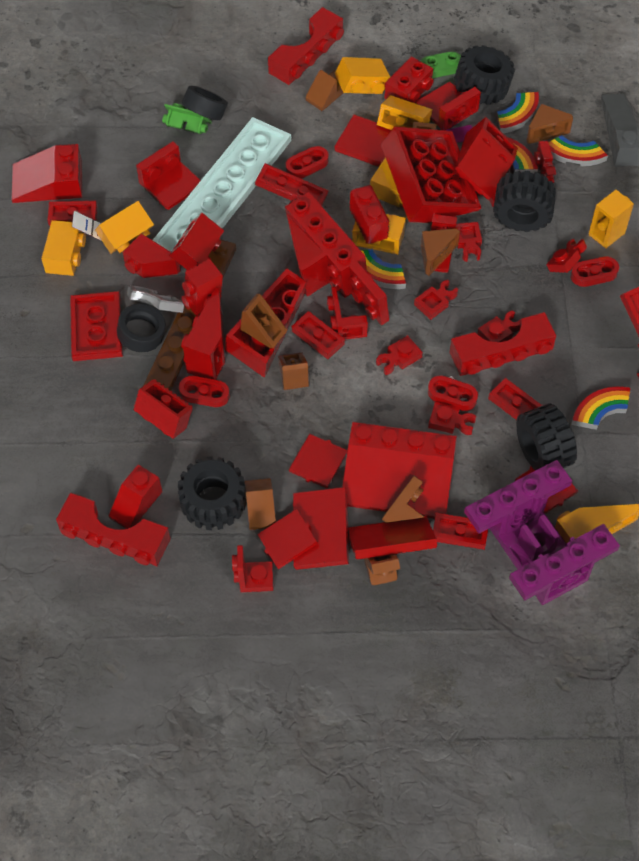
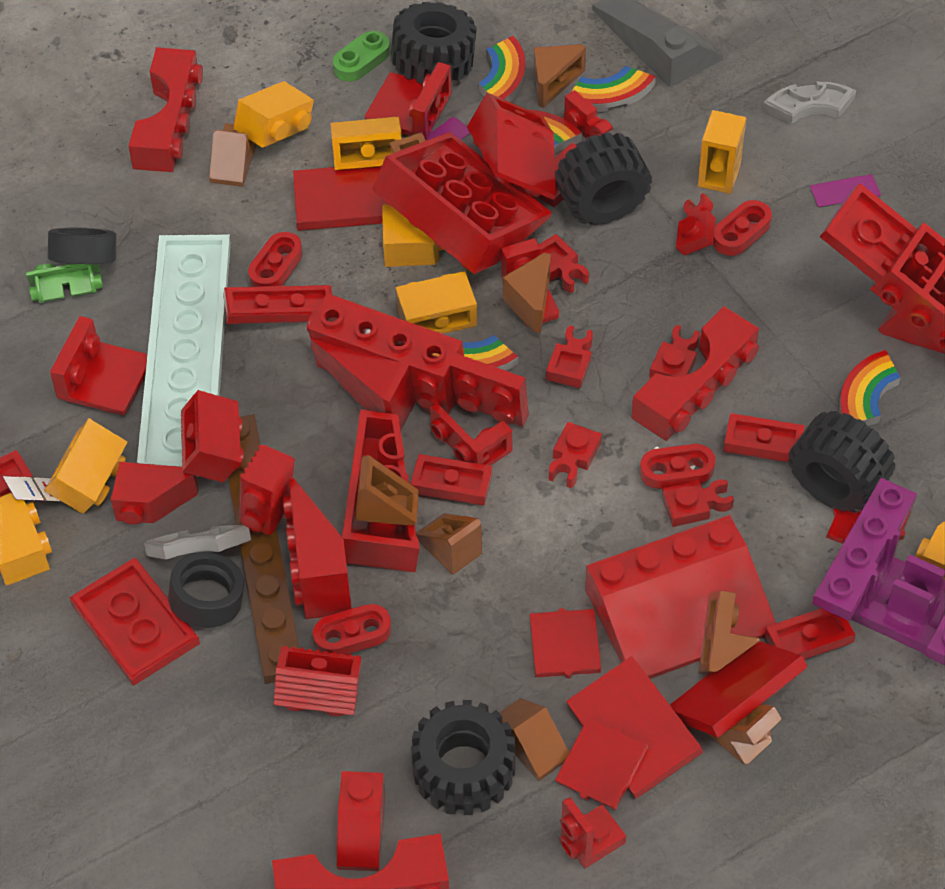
camera: 30 degrees left, 5 degrees down
(369, 214) = (421, 287): red brick -> none
(410, 81) = (339, 94): red brick -> none

